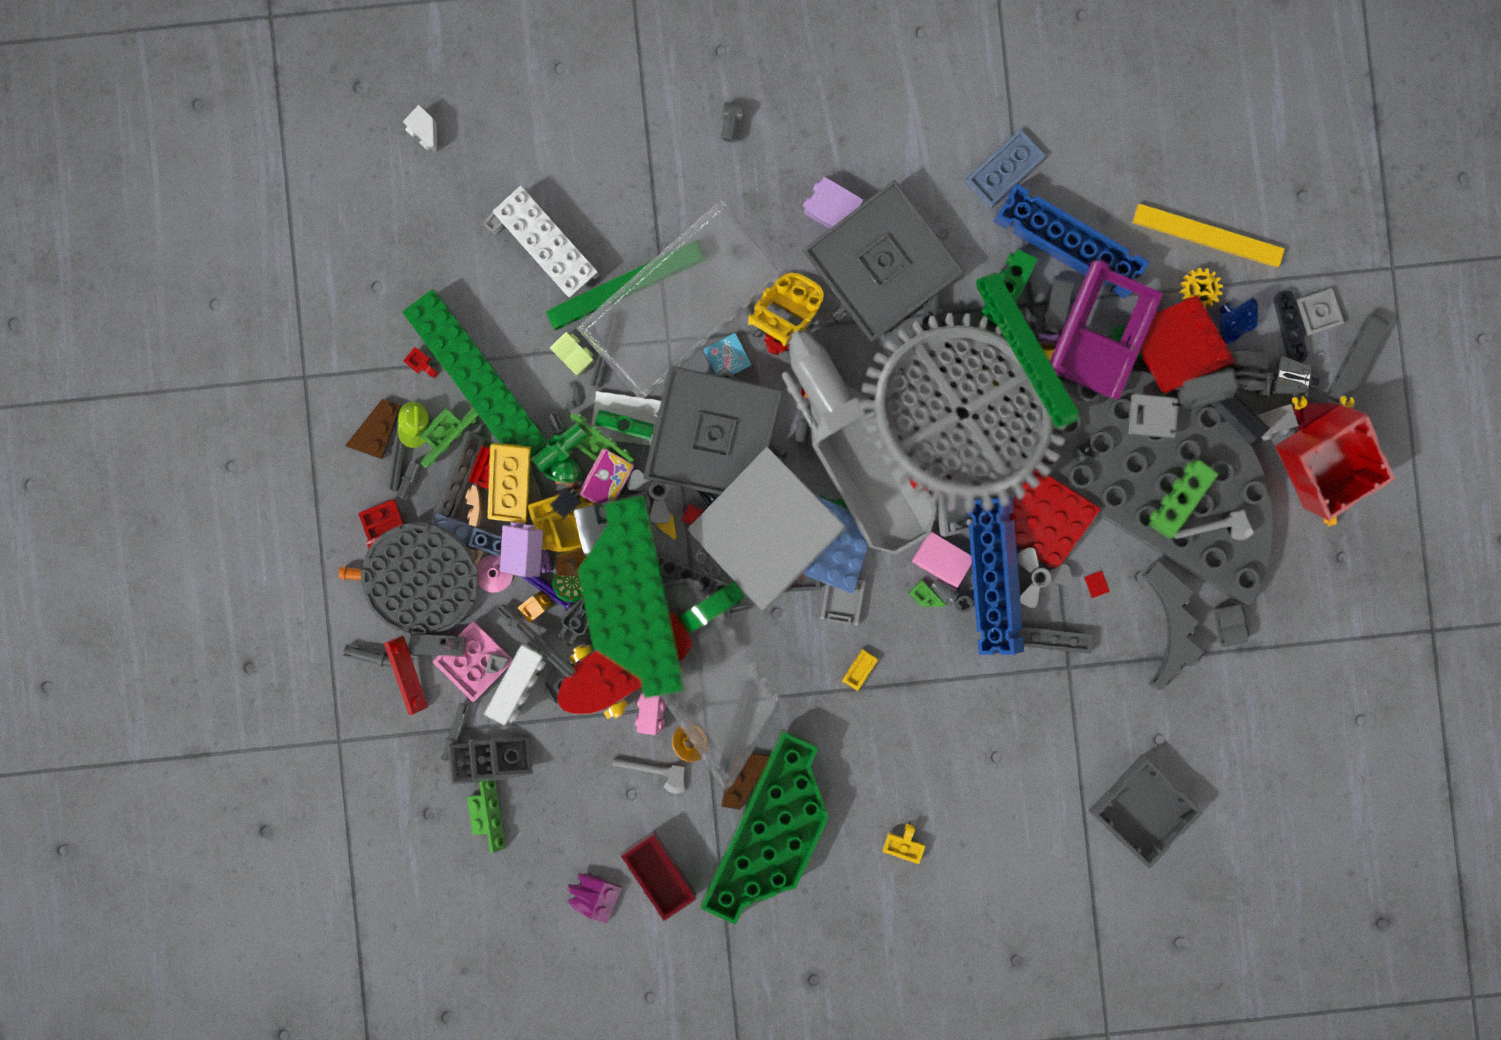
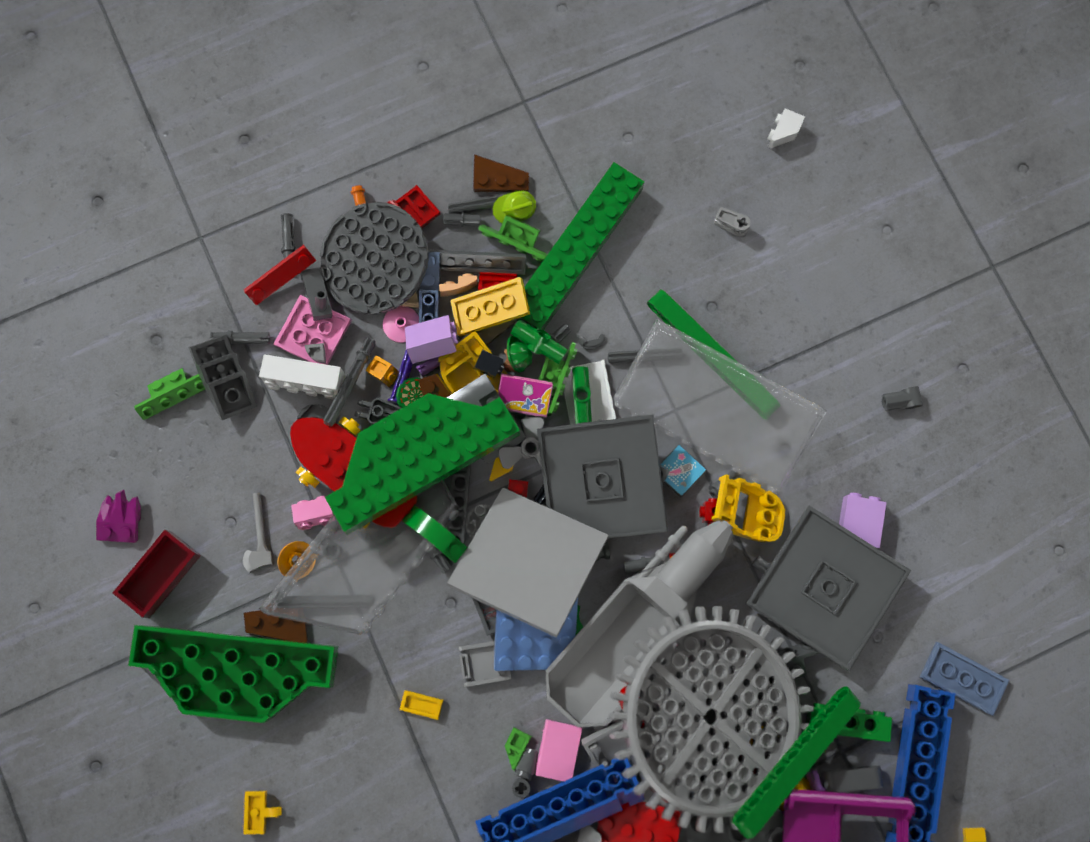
camera: 70 degrees right, 10 degrees down
(419, 361) = (573, 193): red plate -> none
(545, 242) = (724, 267): white bracket -> none
(571, 353) = (630, 326): yellowish green brick -> none

